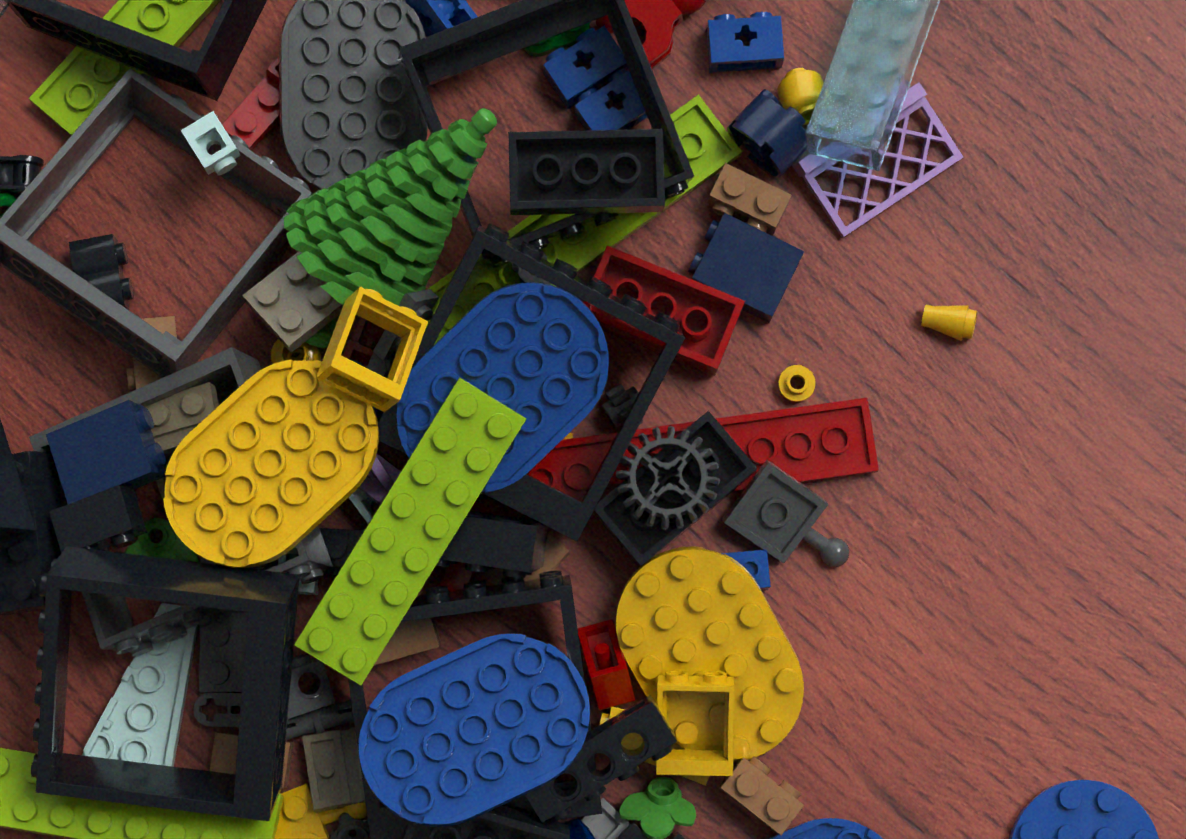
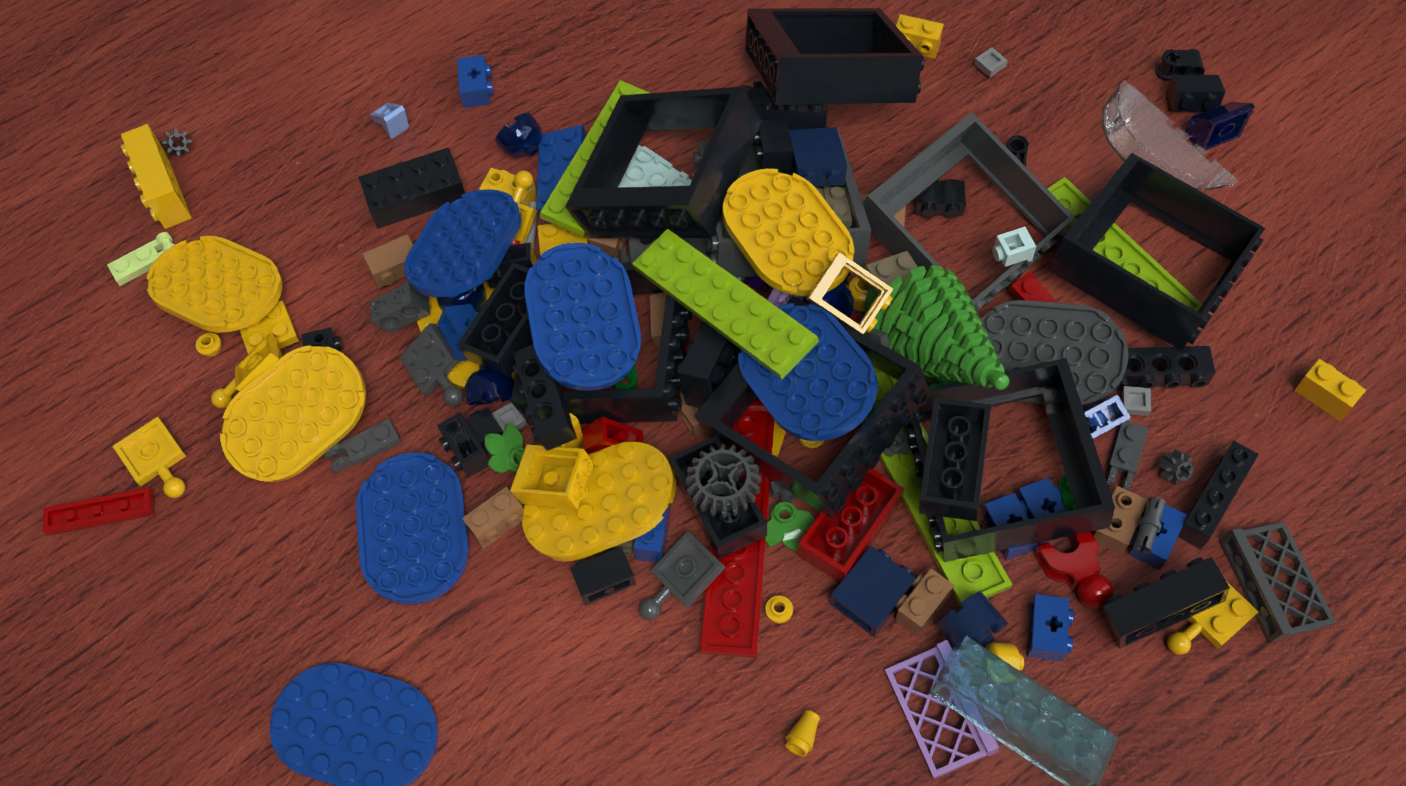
camera: 110 degrees right, 20 degrees down
(683, 394) = (788, 530): none -> bright green plate
(810, 623) = (603, 575): none -> black brick

